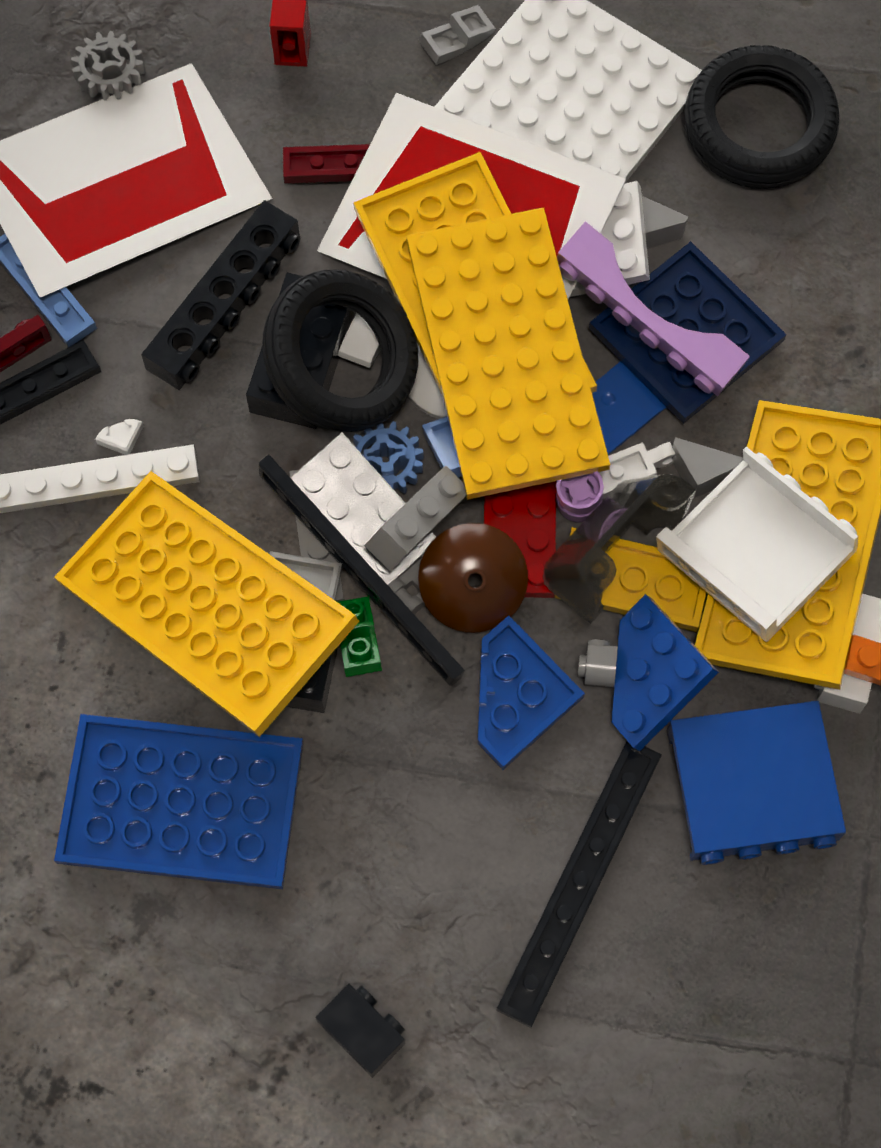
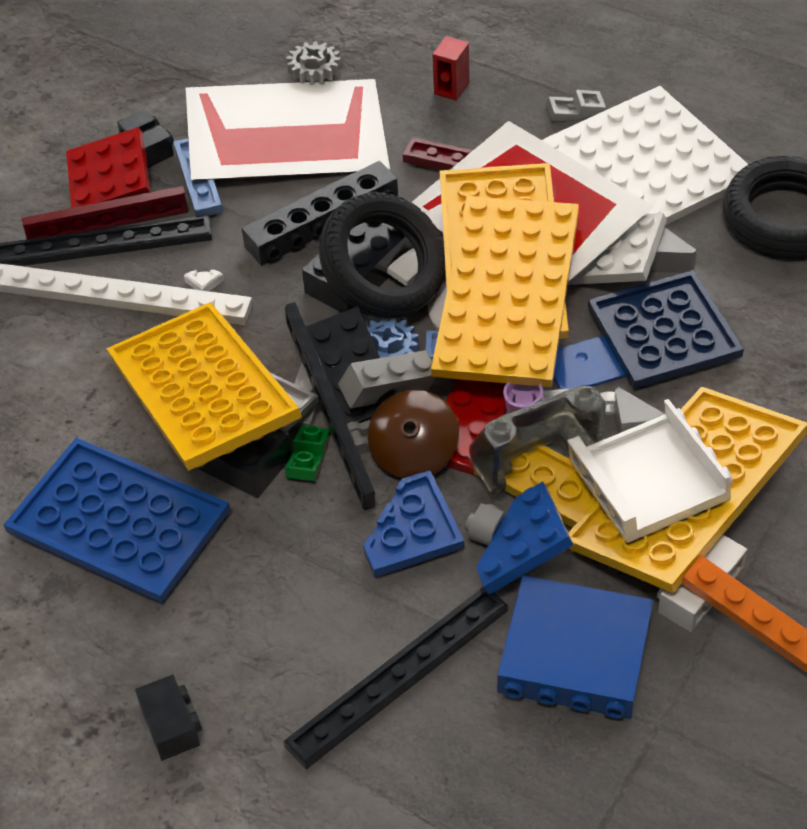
camera: 25 degrees right, 20 degrees down
(706, 356) = (667, 338): lavender arch -> none

